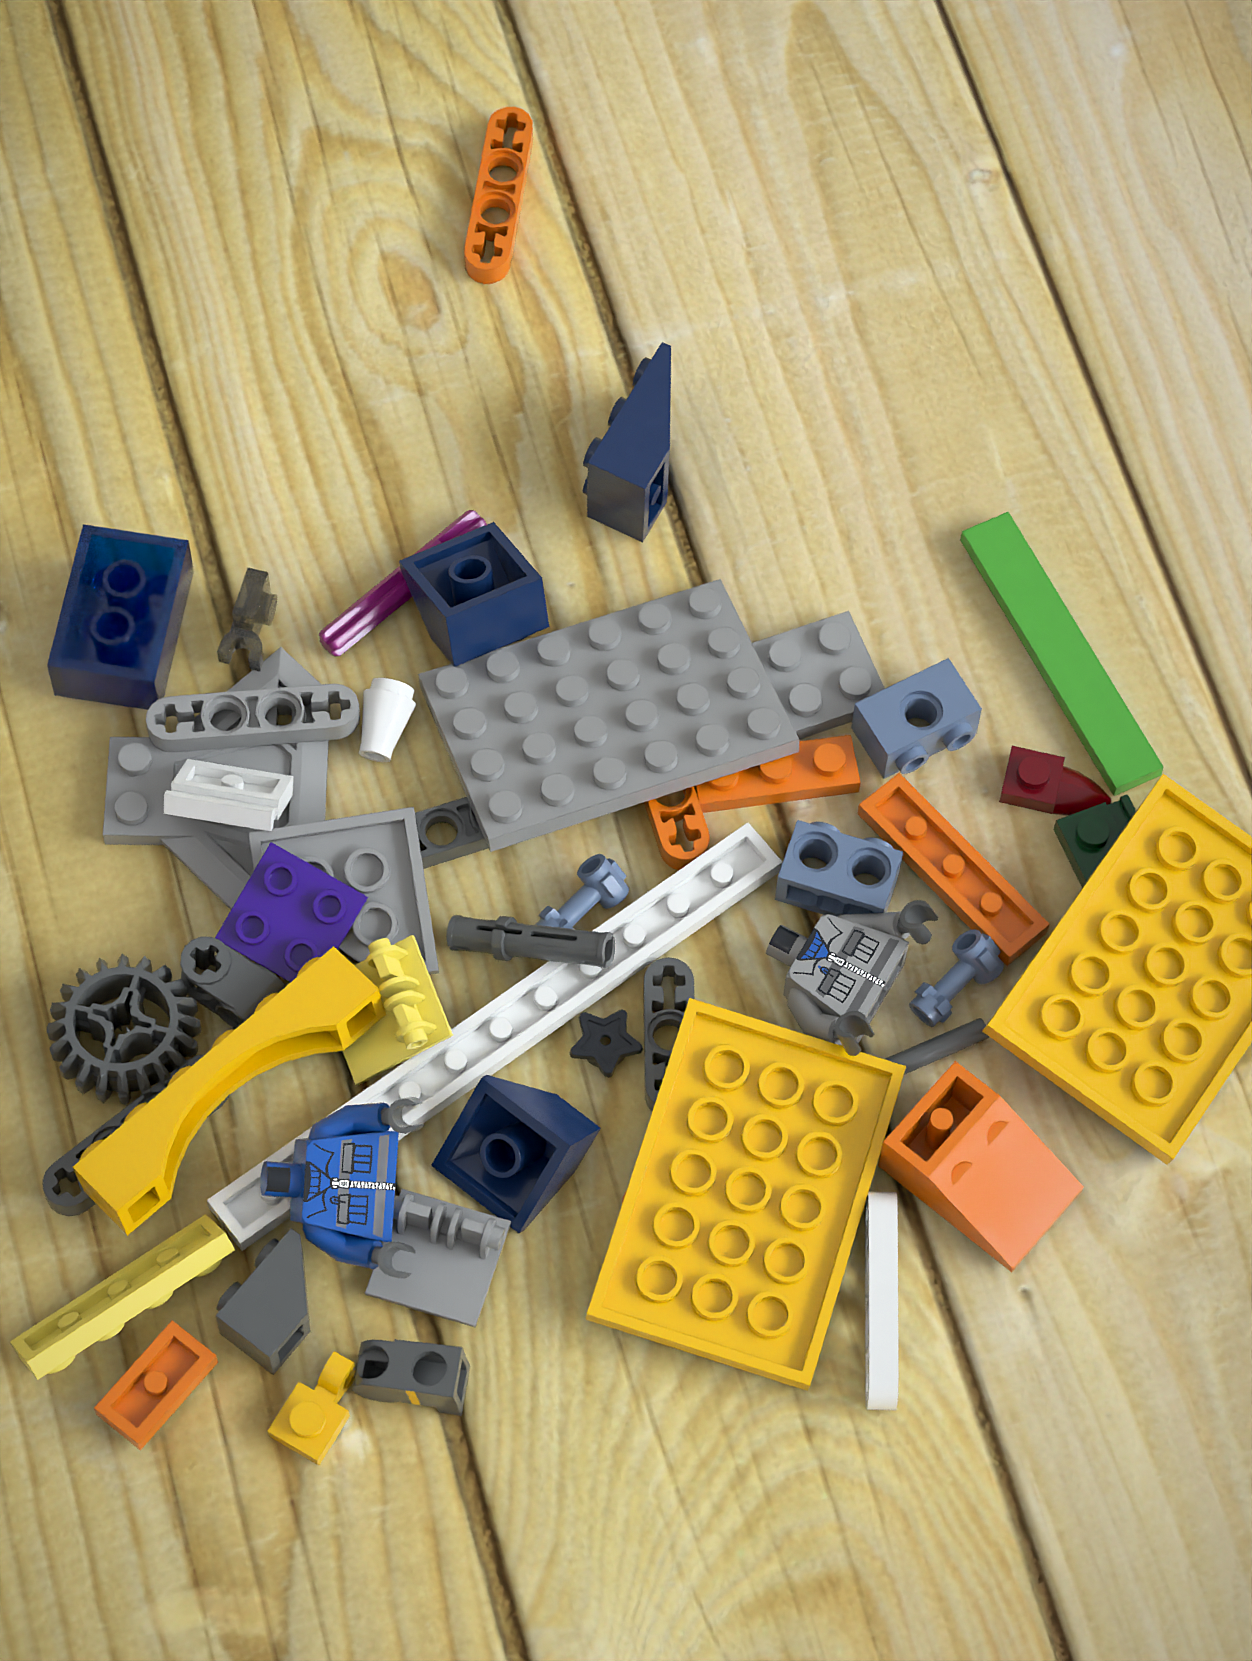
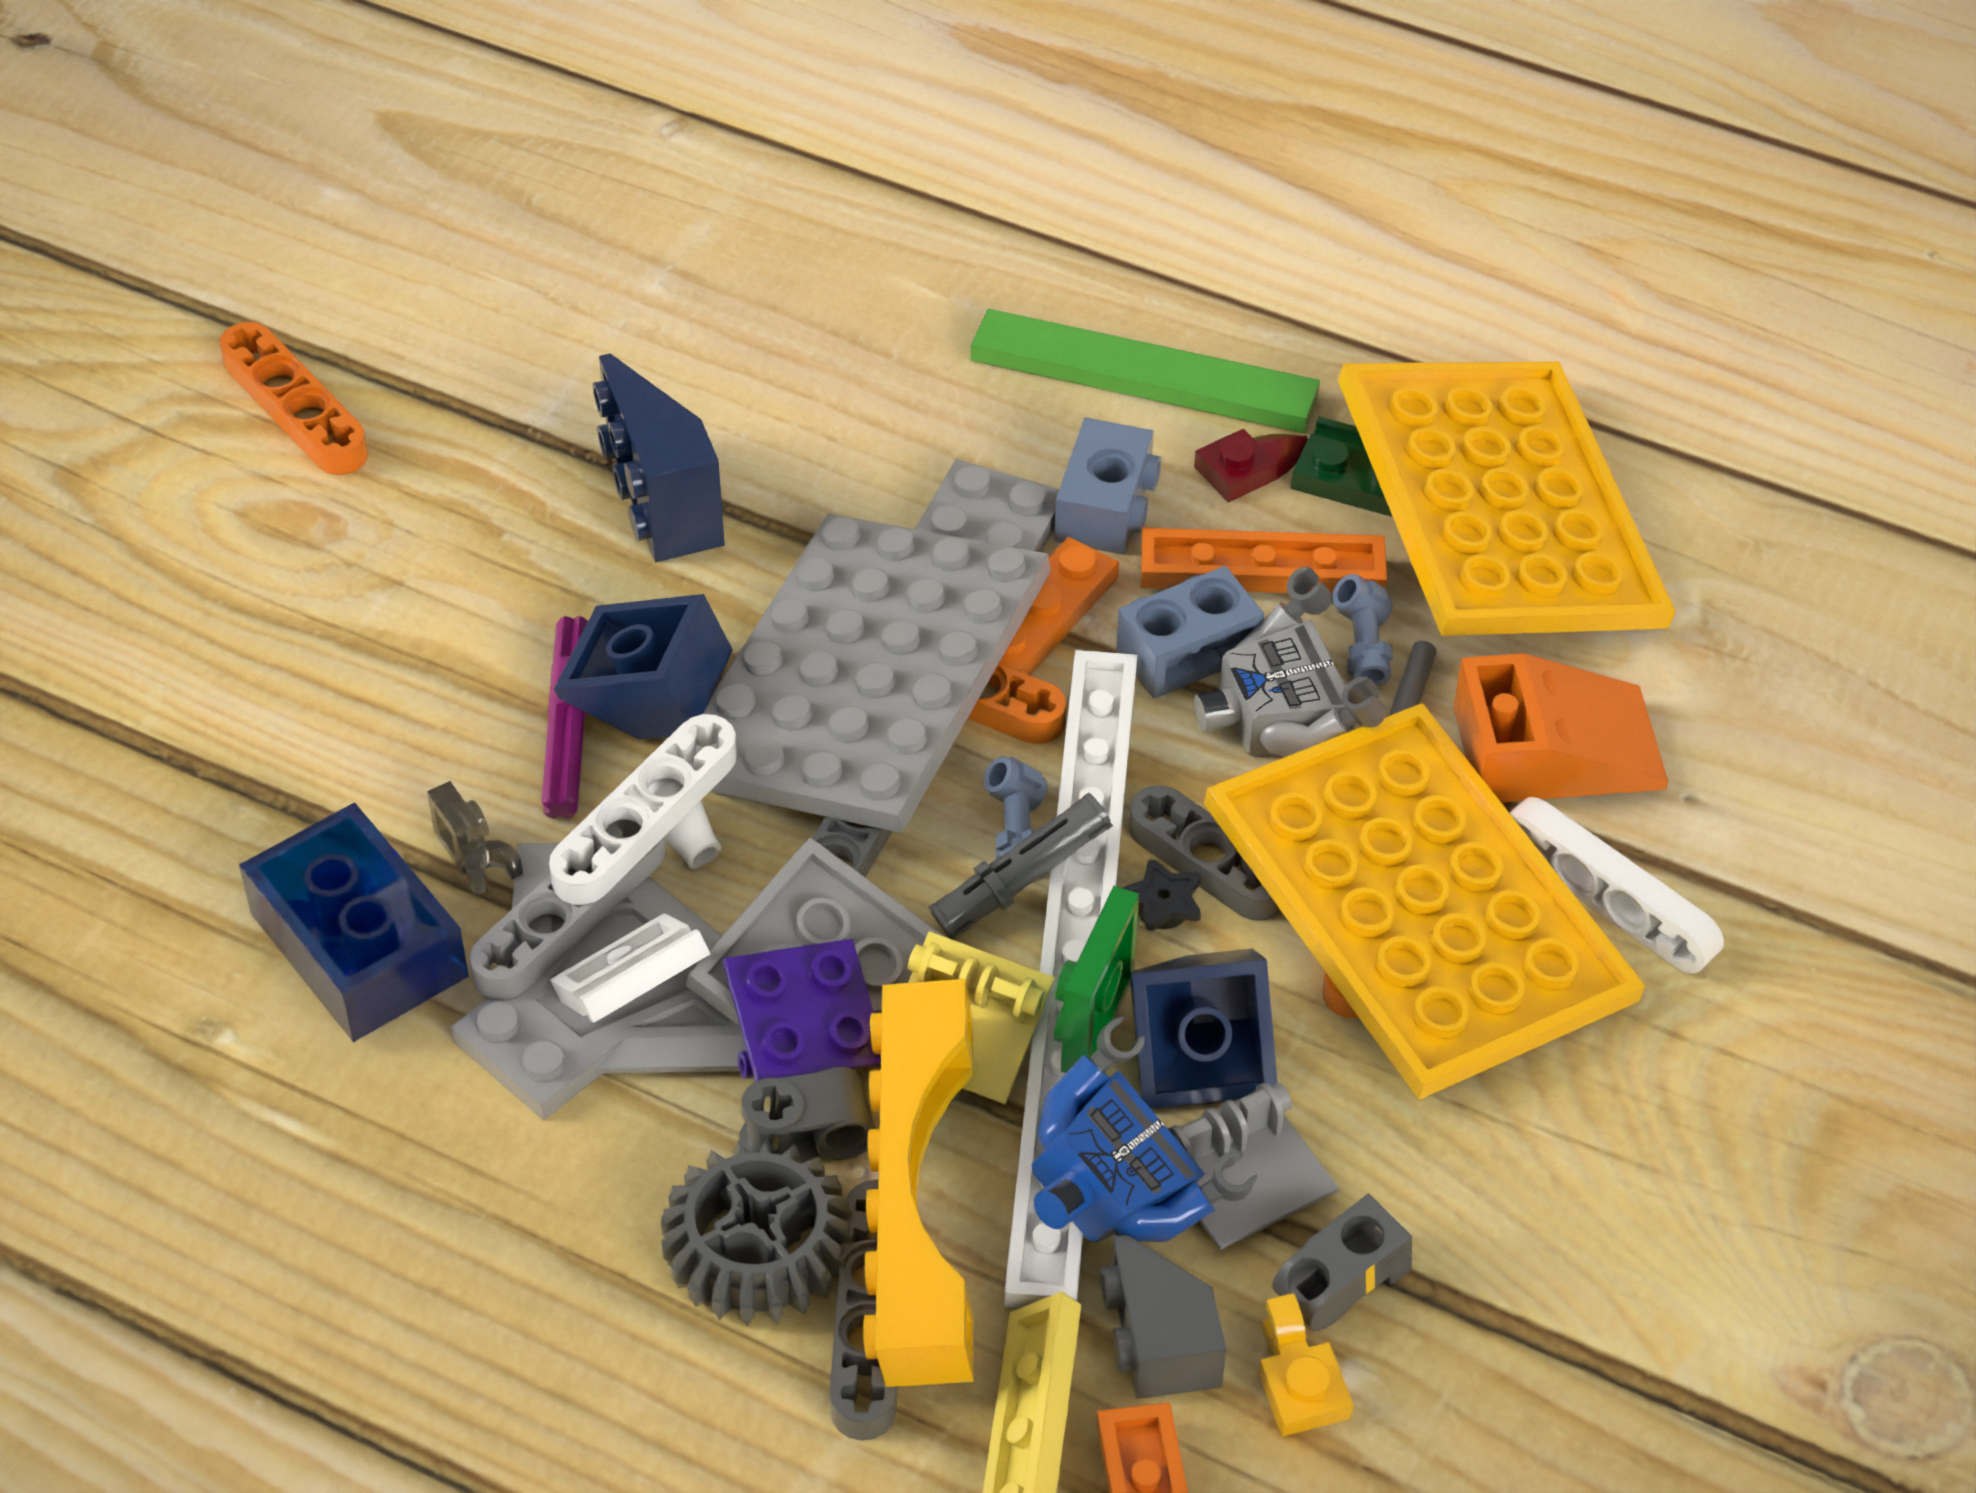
camera: 45 degrees left, 15 degrees down
(347, 686) = (636, 803): none -> white beam
(453, 1063) = (1099, 979): none -> green plate

